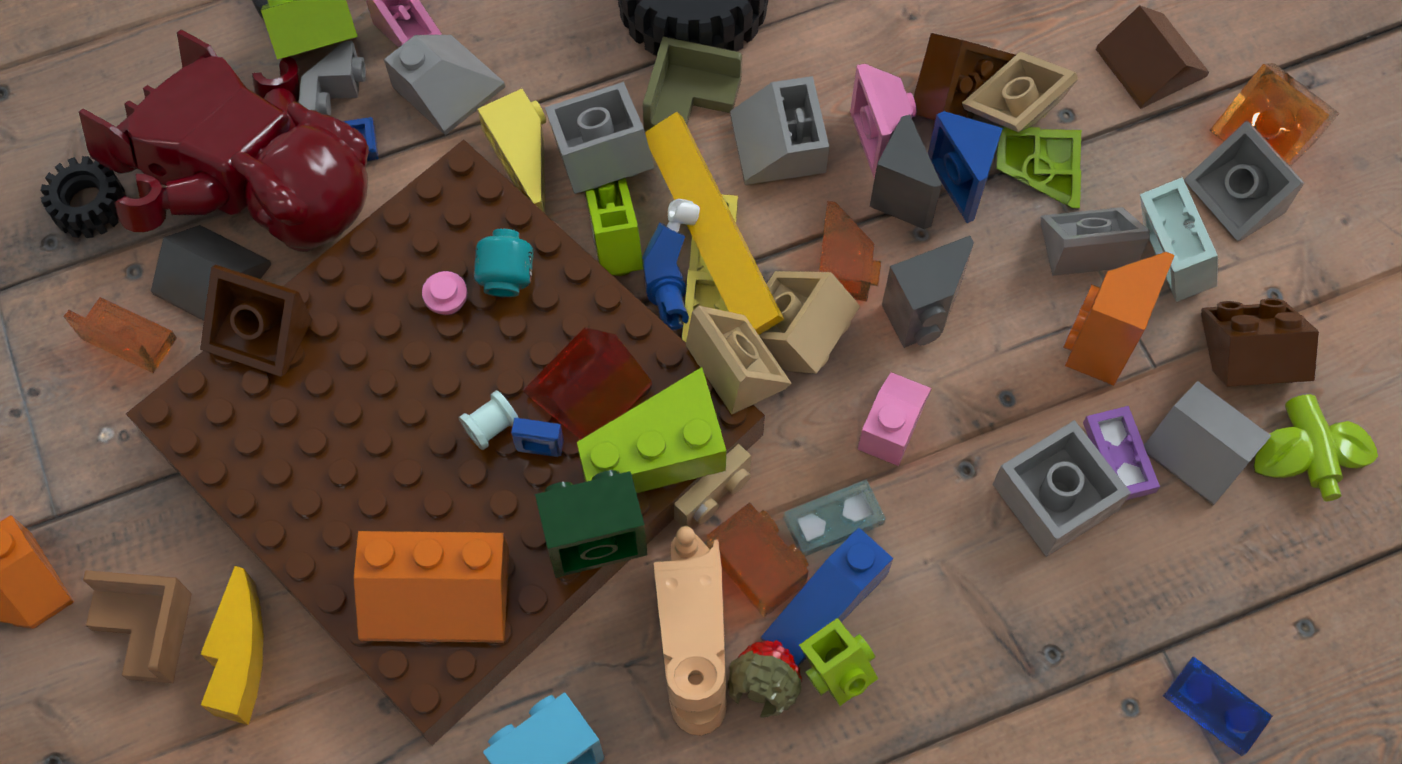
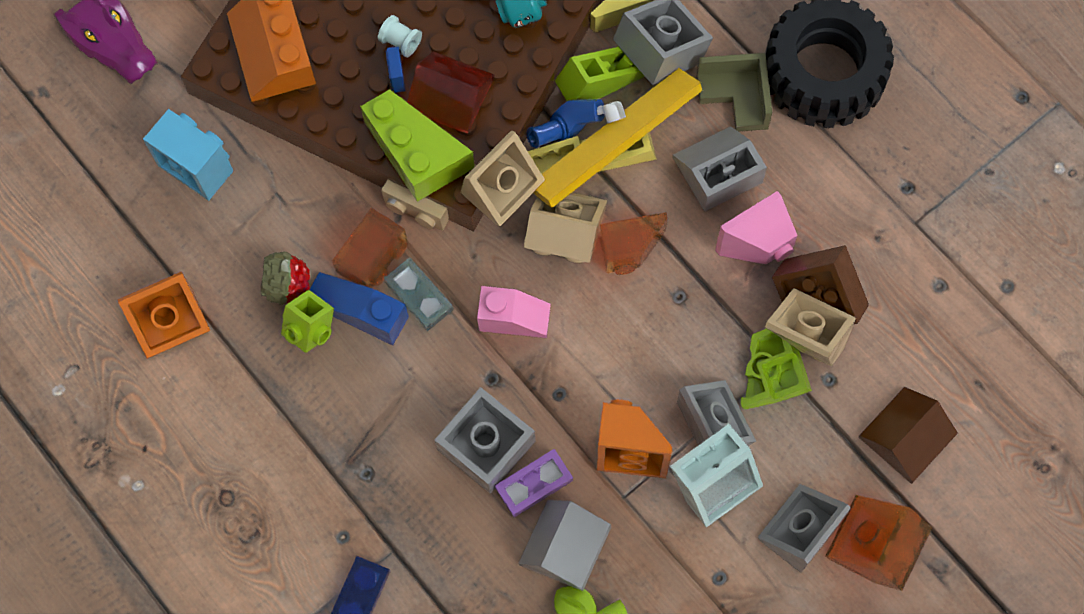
camera: 75 degrees right, 5 degrees up
(592, 522) = (336, 118): dark green brick -> none
(693, 632) = (297, 218): light nougat piece -> none
(906, 178) = (711, 259): dark grey slope -> none
(924, 290) = (613, 305): dark grey slope -> none
(963, 158) = (736, 306): blue slope -> none
(1260, 343) = (662, 566): reddish brown slope -> none

